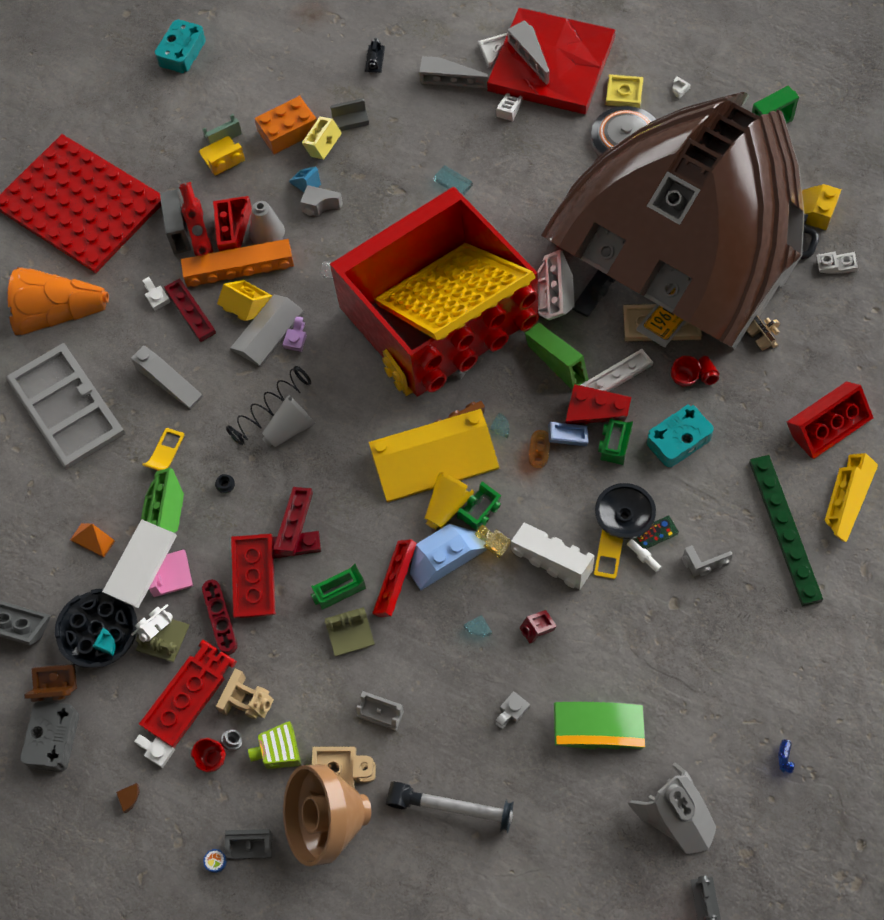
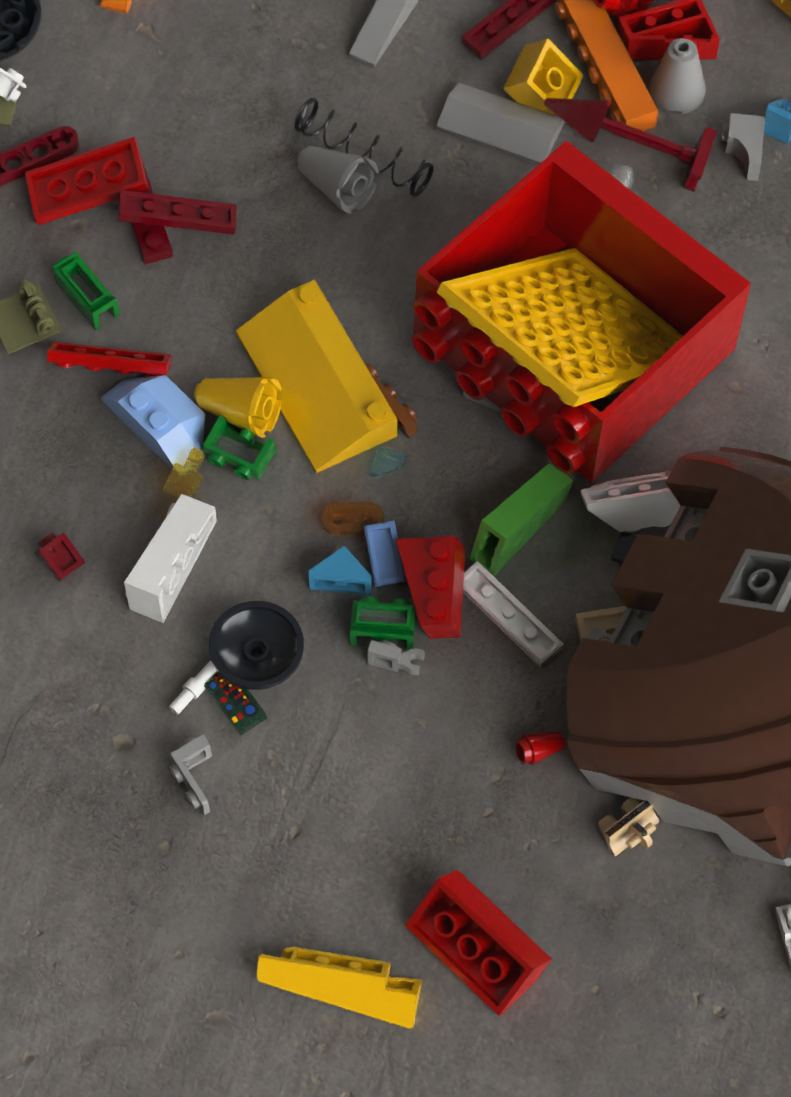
camera: 75 degrees right, 0 degrees up
(139, 563) = (75, 35): white tile -> none
(164, 455) = (267, 39): yellow piece -> none
(164, 501) = (172, 53): bright green wedge -> none
(172, 575) = (80, 77): bright pink bracket -> none
(224, 478) = (230, 115): black plate -> none
(295, 338) = (491, 161): lavender plate -> none
(321, 227) = (589, 117): none -> dark red piece
(478, 627) = (50, 480): clear light blue tile -> none
(577, 458) = (341, 574): none -> dark azure slope
(608, 547) = (195, 638): yellow piece -> none
(638, 441) = (390, 657): none -> light grey plate
(685, 370) = (526, 709): red hair -> none
(685, 426) = (413, 706): teal axle -> none
(786, 531) = (269, 889): dark green plate -> none

